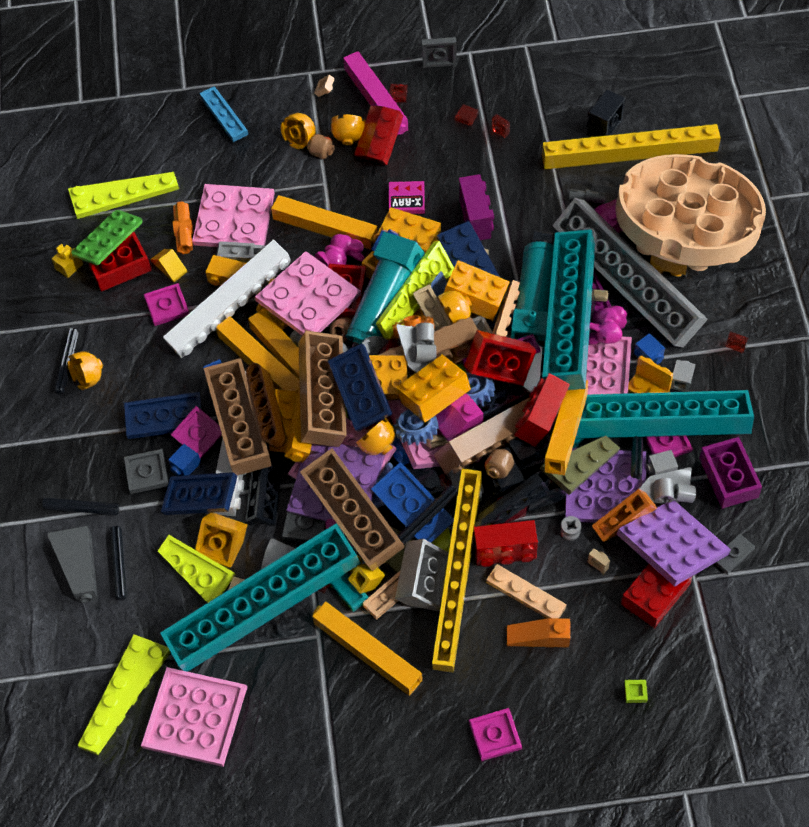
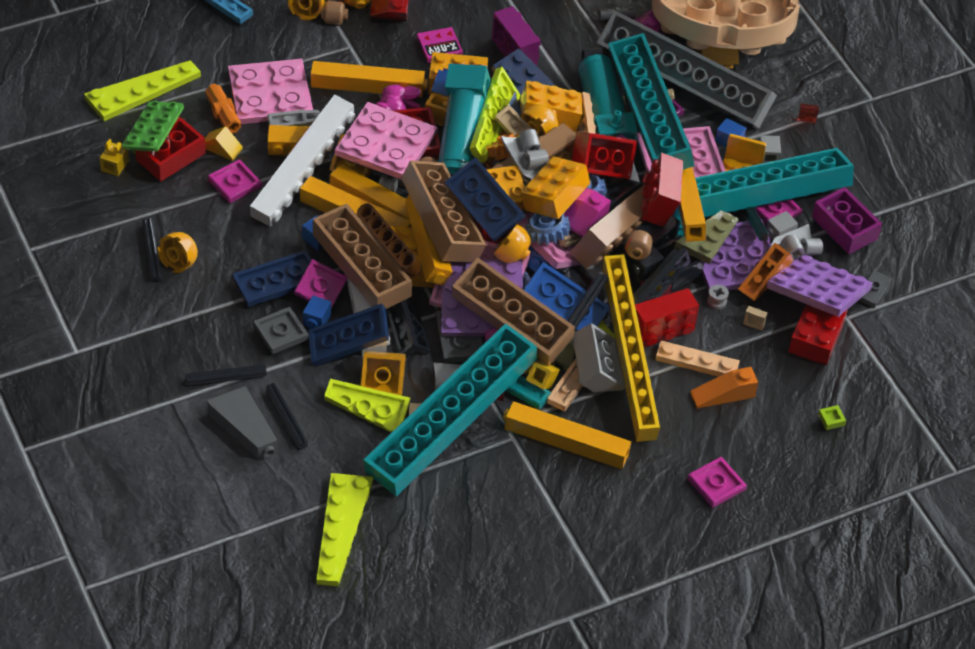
camera: 25 degrees left, 10 degrees down
(194, 716) = (423, 529): bright pink piece -> none
(608, 325) = (689, 116): dark pink animal -> none

